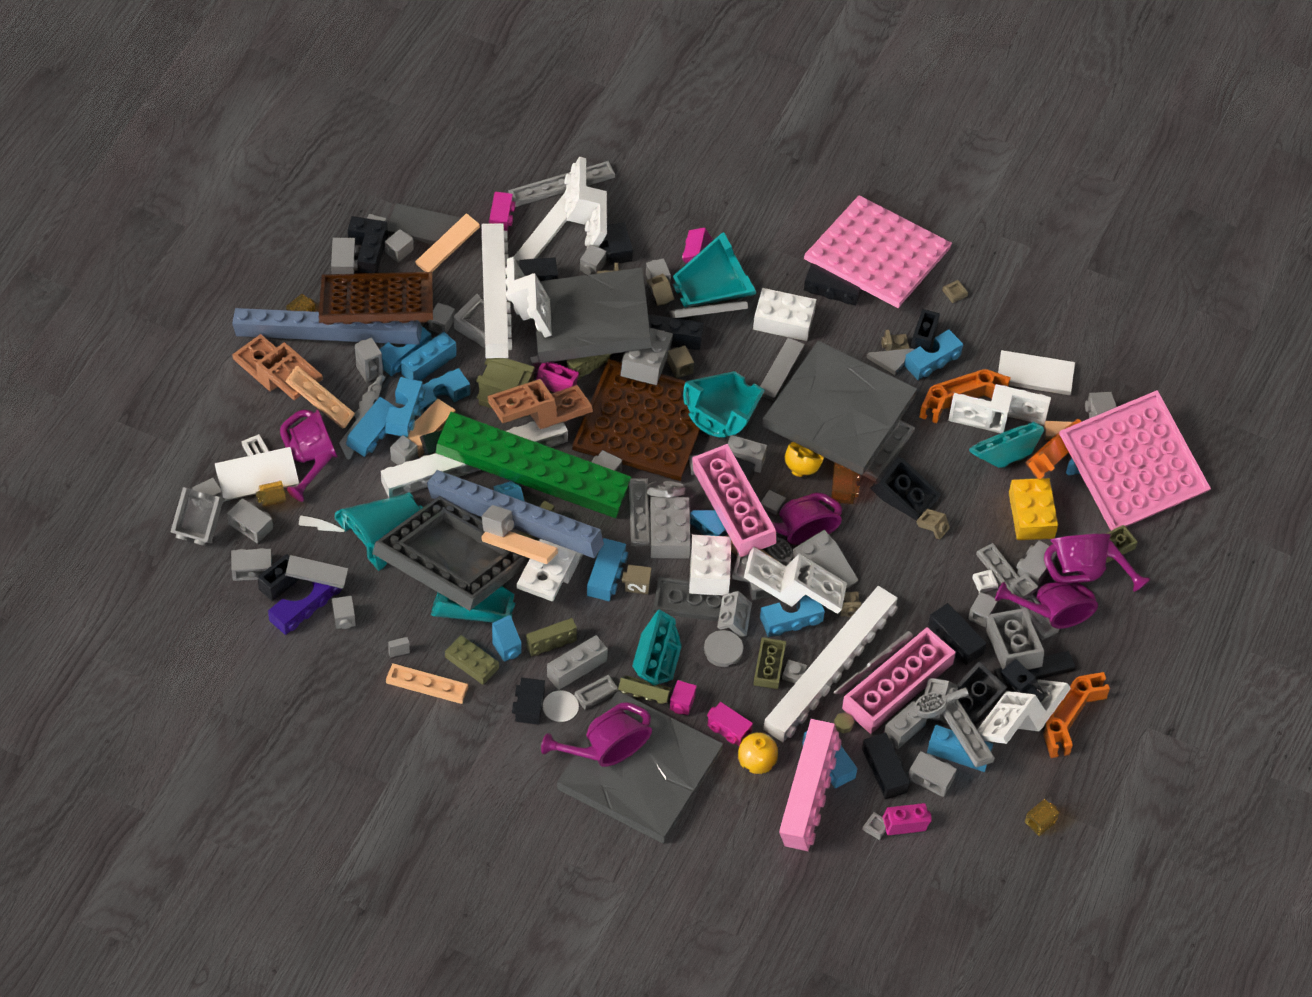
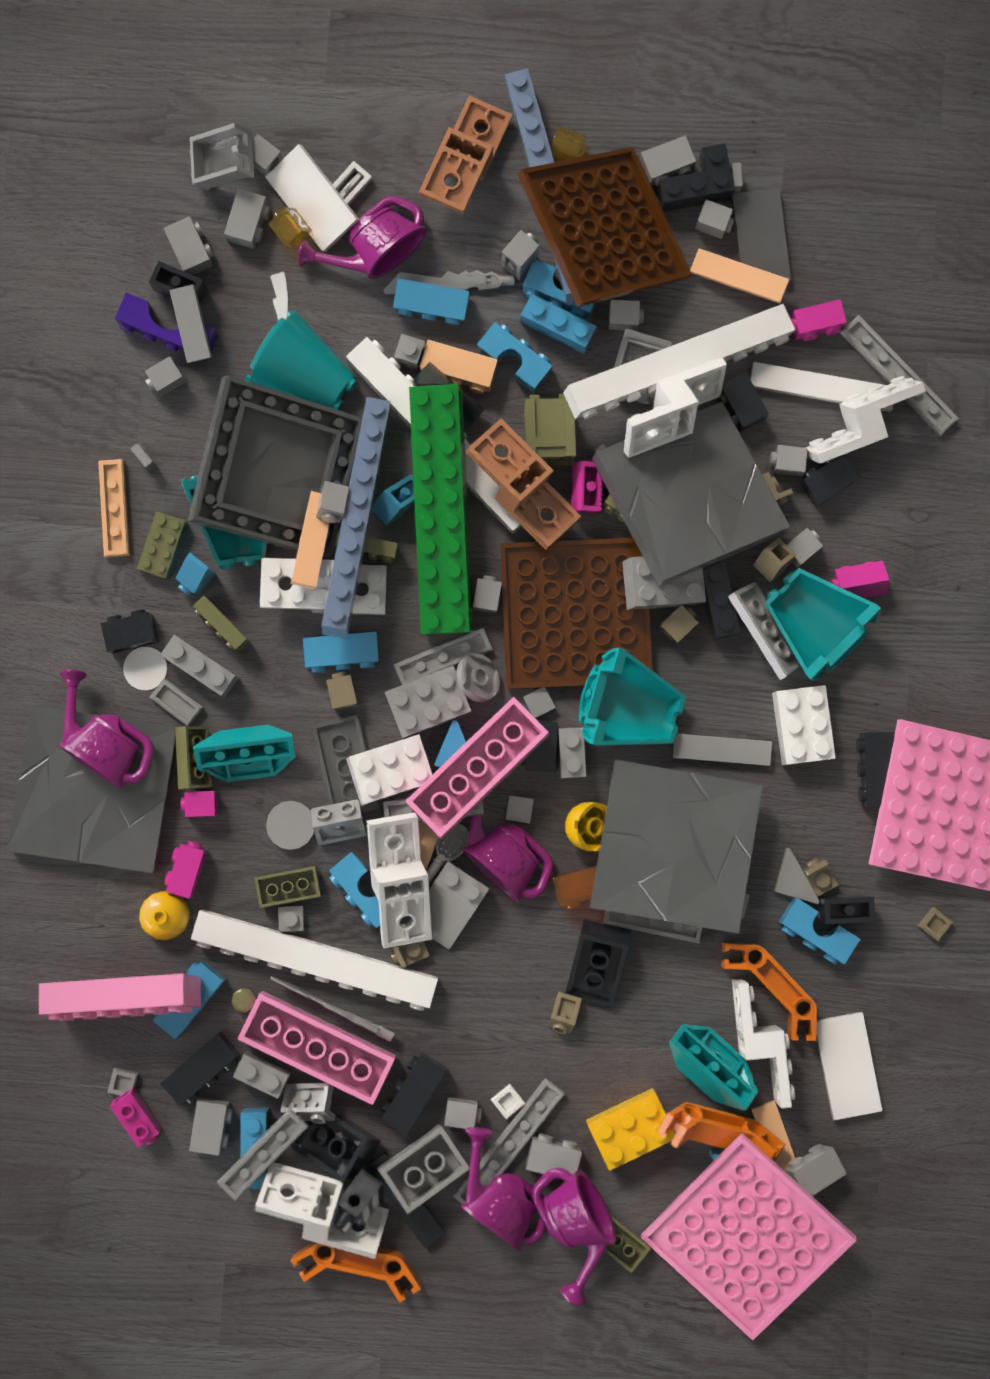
camera: 70 degrees right, 30 degrees up
(320, 397) = (436, 222): light nougat tile -> none
(401, 420) = (481, 328): dark azure arch -> none
(935, 703) = (284, 1106): light grey piece -> none
(1024, 586) = (508, 1154): light grey plate -> none
(1042, 817) = (201, 1272): clear yellow brick -> none

